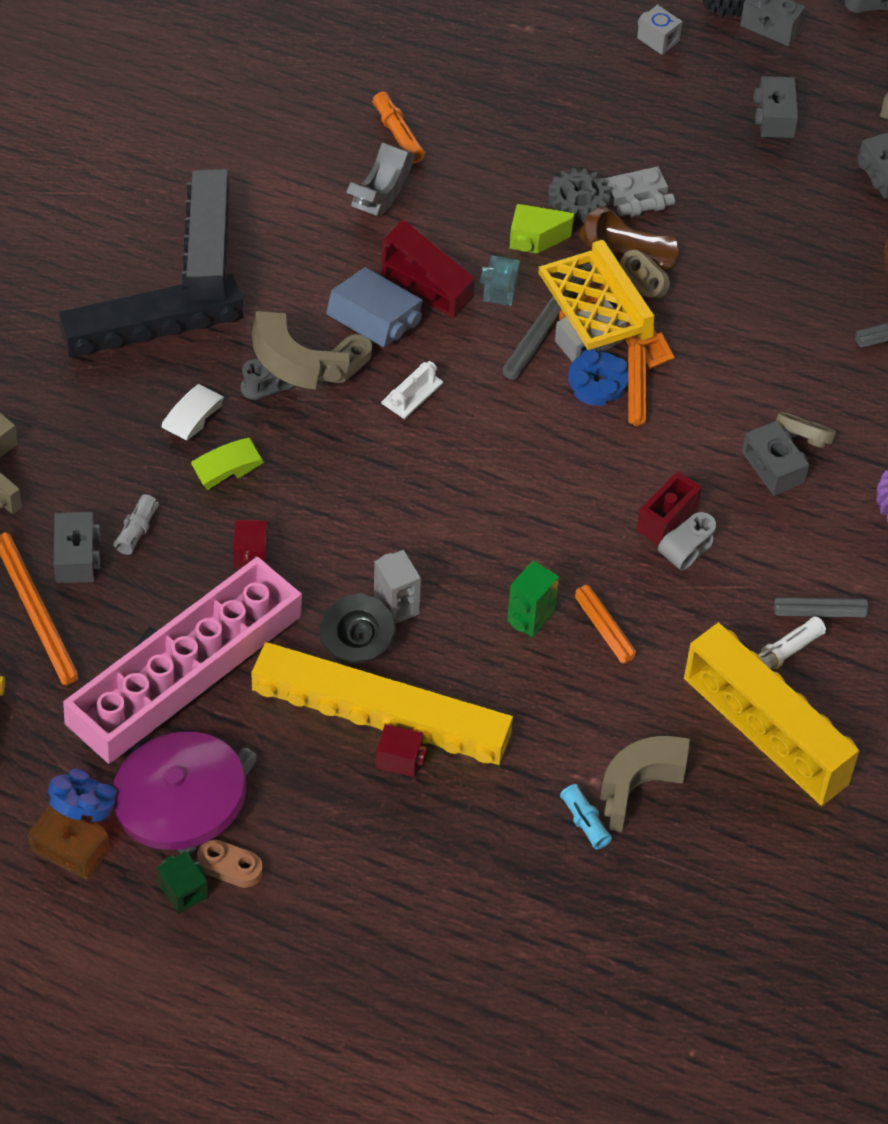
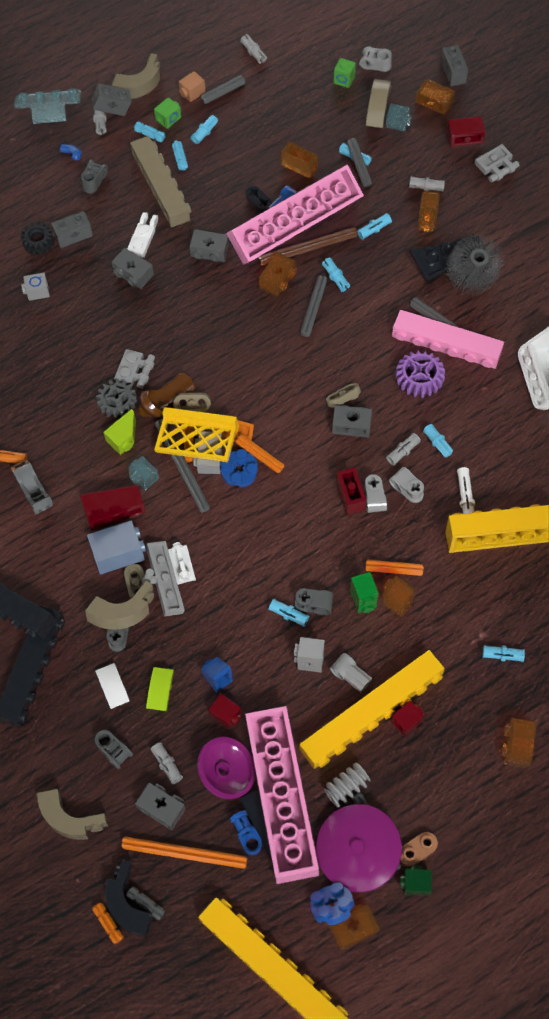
camera: 50 degrees left, 10 degrees up
(110, 458) = (115, 751): none -> dark grey piece
(111, 651) = (247, 832): none -> blue connector
(171, 560) = (233, 762): none -> magenta dish
(251, 730) = (346, 784): none -> light grey piece
(290, 507) = (217, 673): none -> blue slope
(354, 617) = (332, 694): pearl dark grey hat -> none
(375, 381) = (164, 578): none -> light grey plate
(413, 648) = (346, 669): none -> light grey piece
(441, 541) = (289, 612): none -> medium azure pin
(469, 900) = (519, 743): none -> clear orange brick
(479, 556) = (316, 601): none -> dark grey piece
(561, 640) = (398, 595): none -> clear orange brick
(640, 762) = (490, 612): dark tan arch -> none
(737, 573) = (407, 485): none -> light grey piece
(787, 539) = (403, 449): none -> light grey pin
(820, 607) = (452, 462): dark grey axle -> none
(837, 571) = (438, 440): none -> medium azure axle
(838, 92) = (143, 235): none -> white hinge

